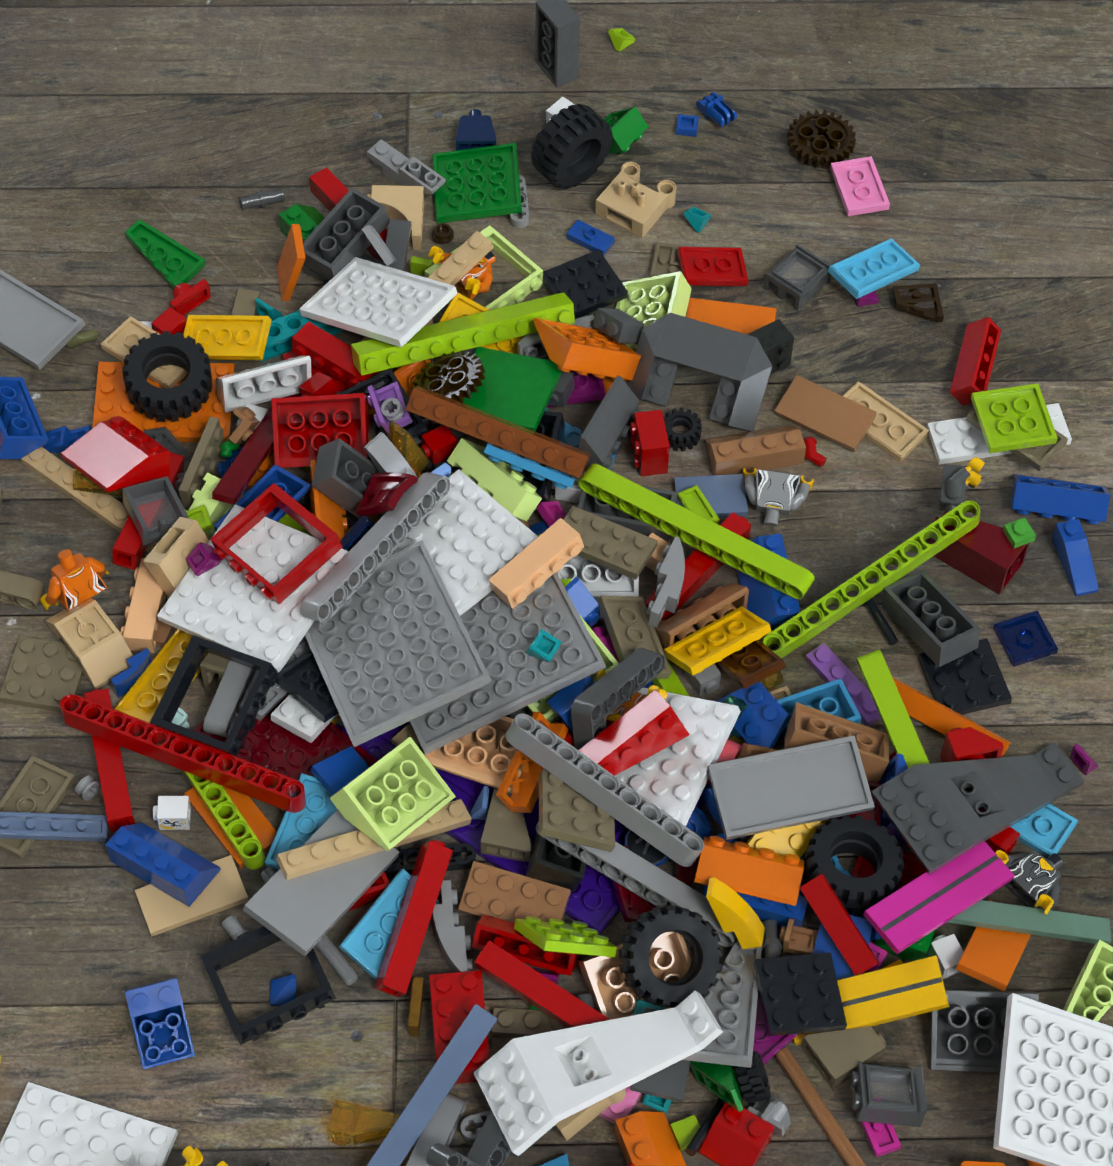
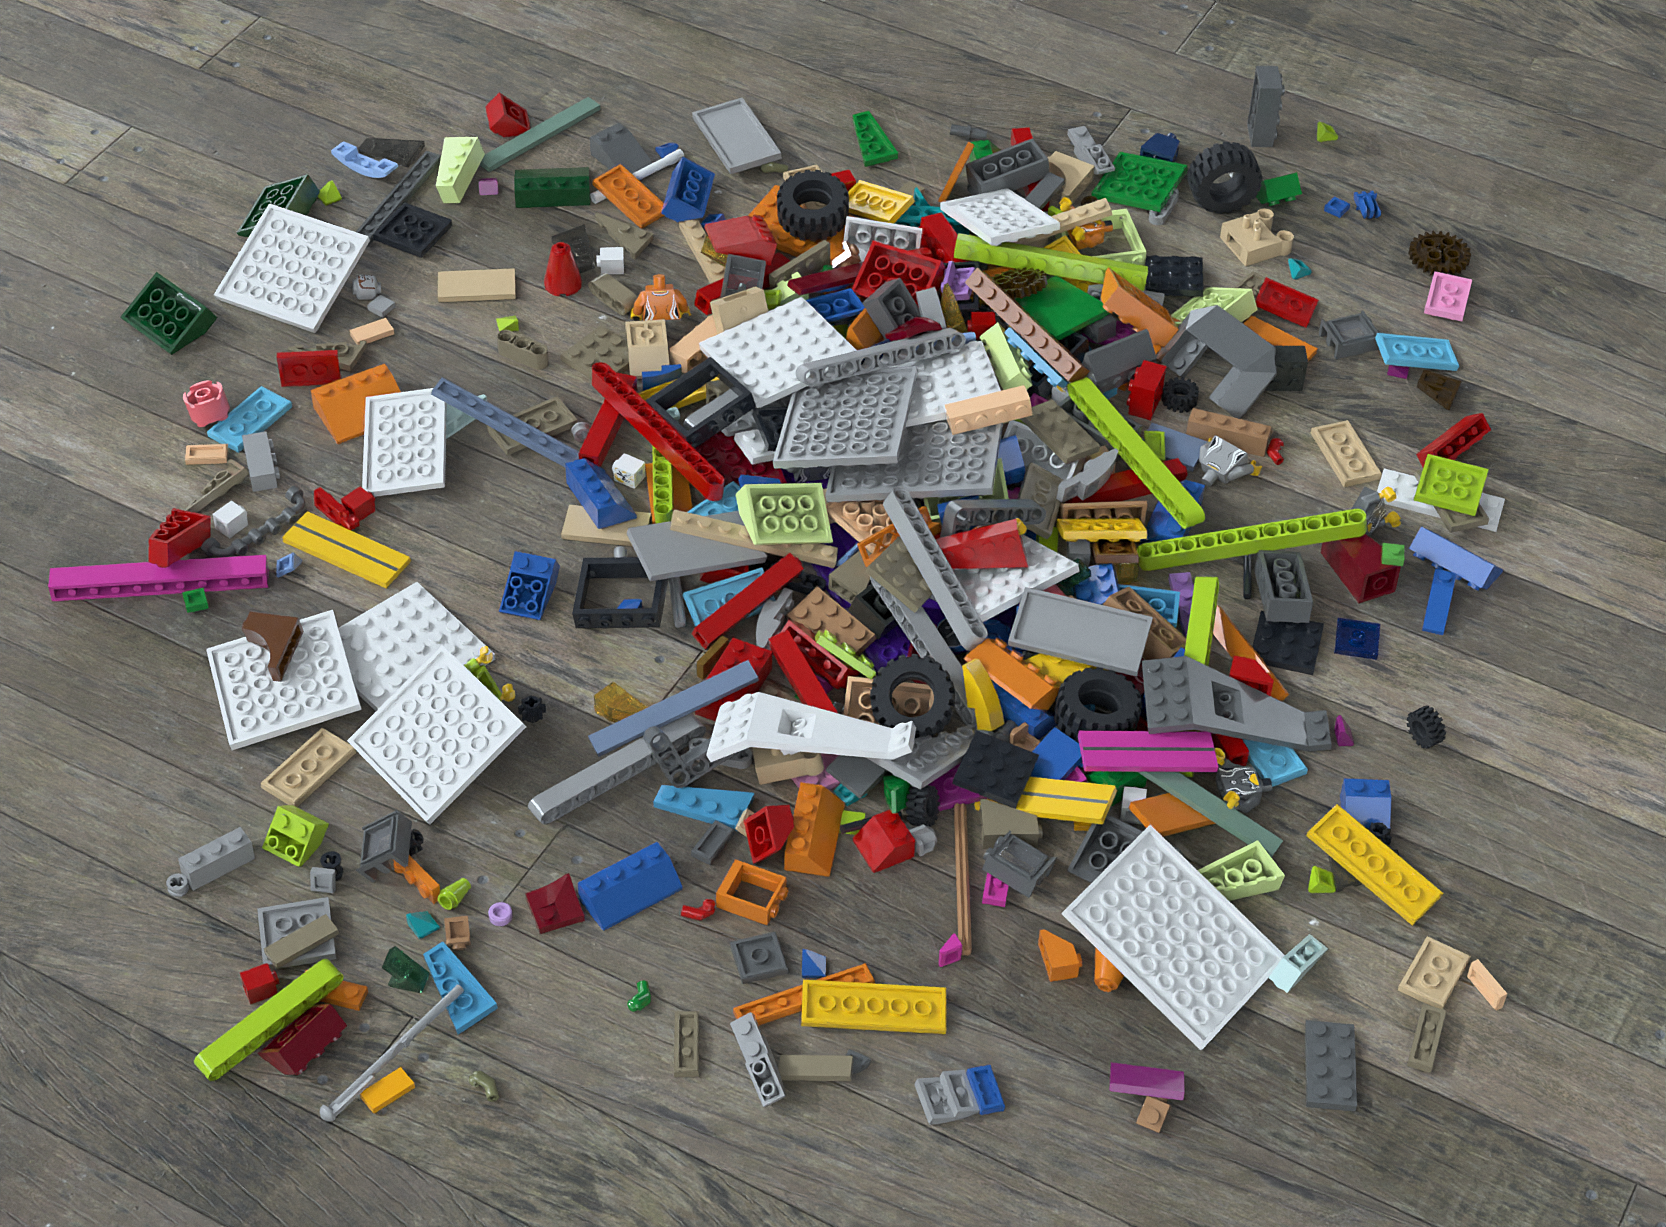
camera: 30 degrees right, 10 degrees down
(166, 439) = (785, 247): dark grey piece -> none
(188, 297) = (870, 171): red tile -> none
(202, 559) = (753, 318): magenta slope -> none
(253, 514) = (804, 303): red window -> none
(379, 245) = (1026, 181): light grey tile -> none
(387, 405) = (957, 283): light grey bush -> none
(544, 646) = (955, 461): teal slope -> none
(590, 237) = (1203, 248): blue plate -> none
(618, 325) = (1175, 304): dark grey brick -> none
(825, 413) = (1304, 429): medium nougat tile -> none
(839, 925) = (1056, 736): red tile -> none

